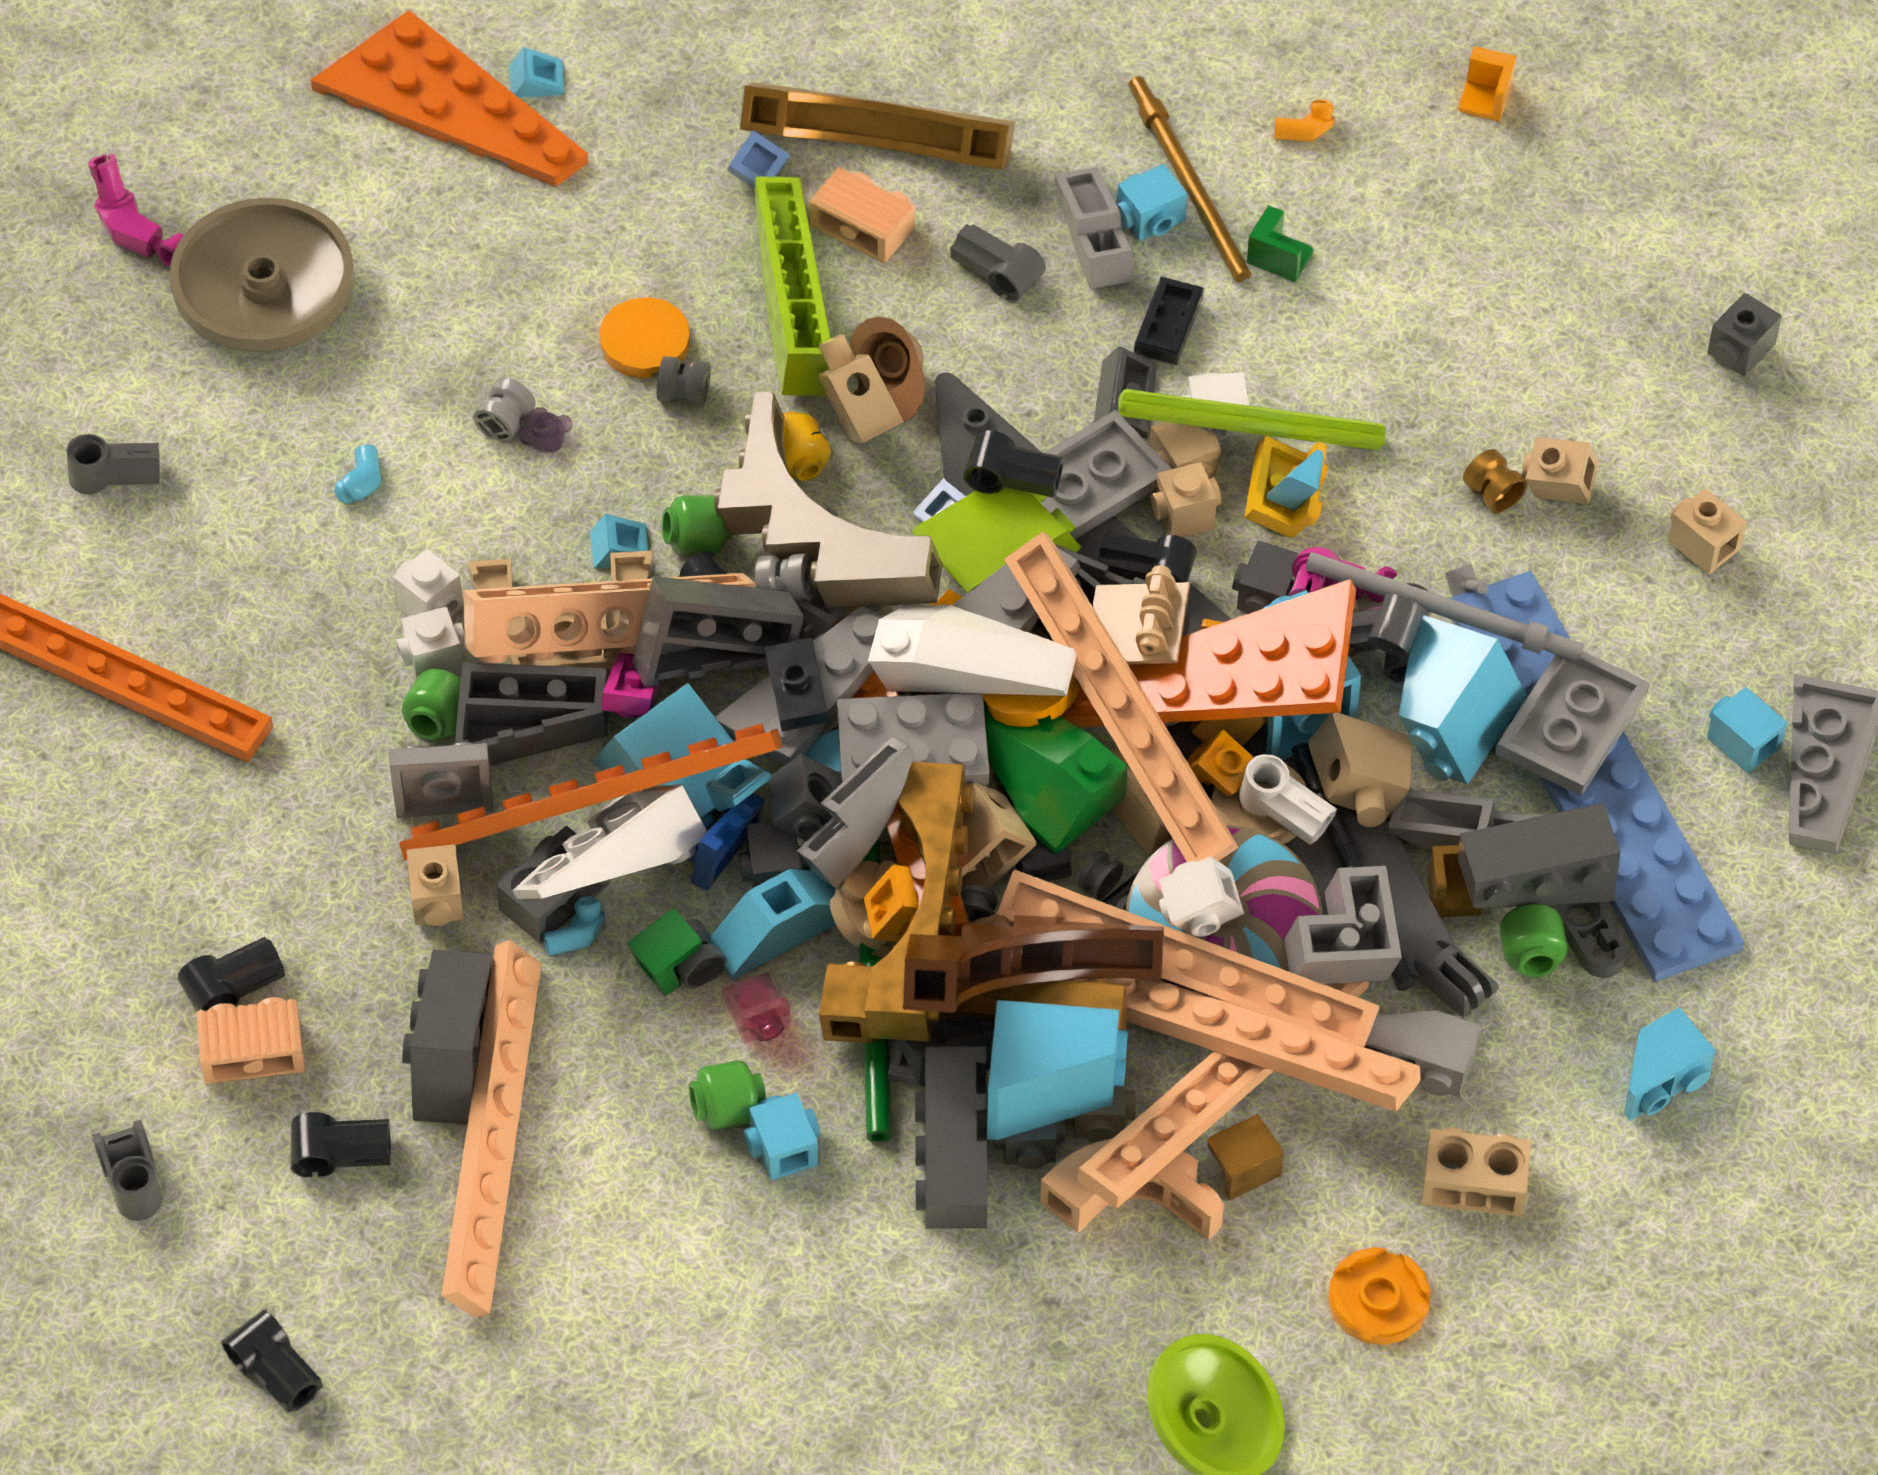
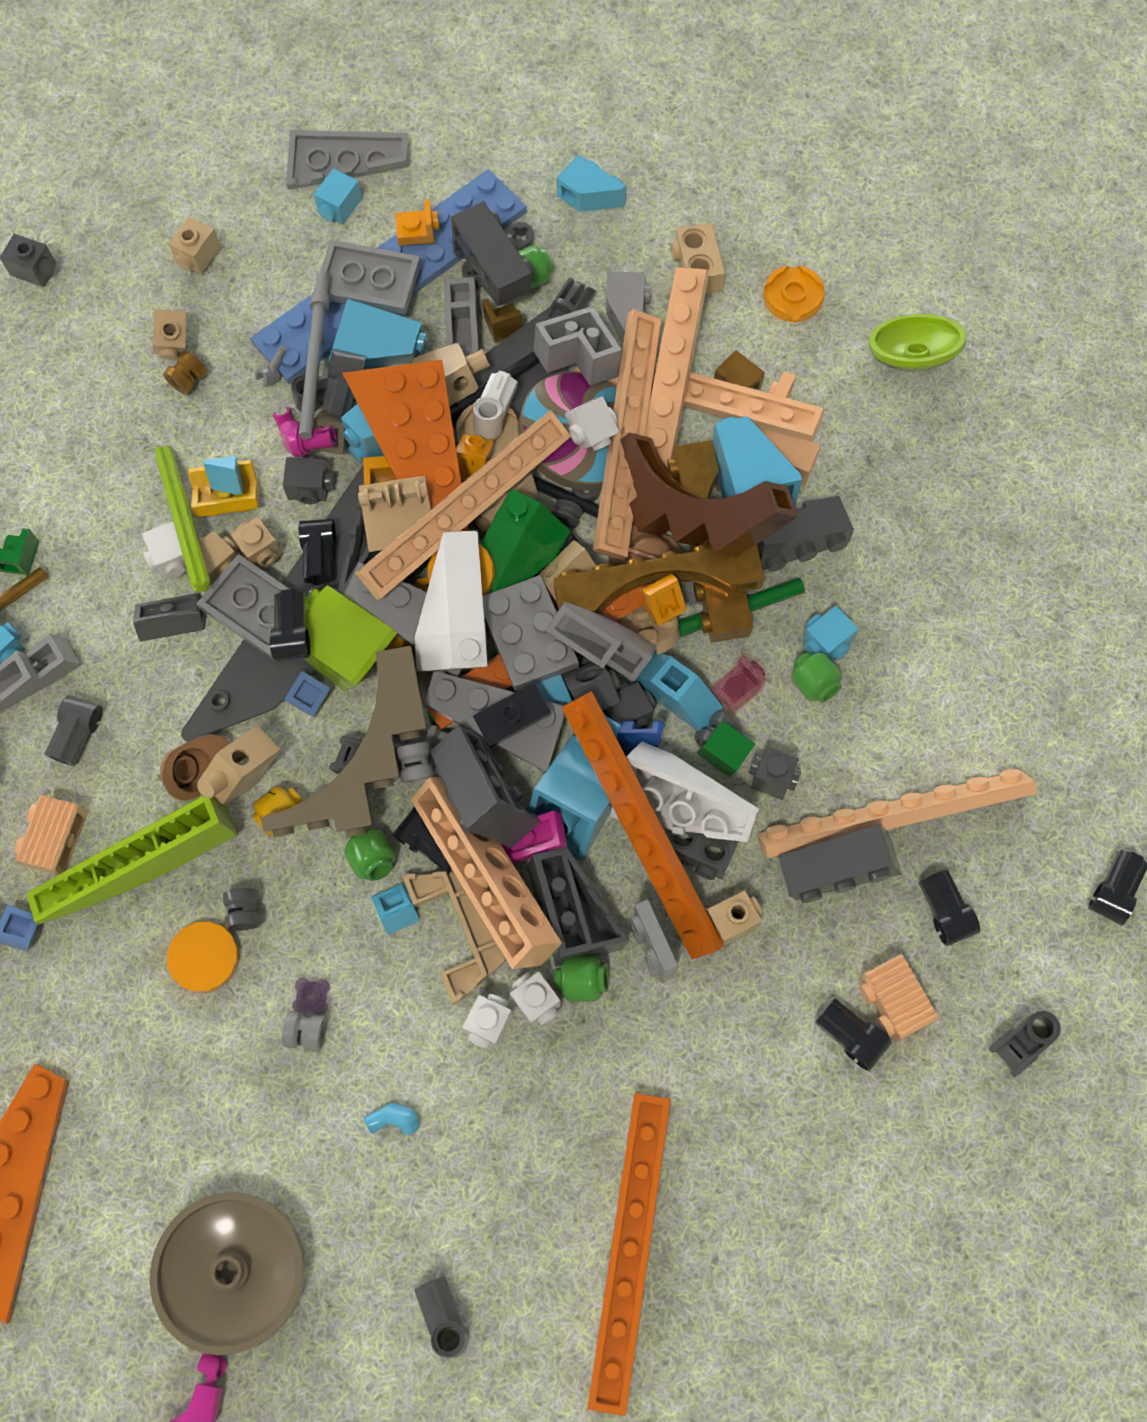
camera: 105 degrees left, 15 degrees up
(609, 997) = (774, 773): none -> dark grey brick
(1168, 320) = (97, 604): black plate -> none
(1649, 805) = (417, 226): none -> light orange bracket

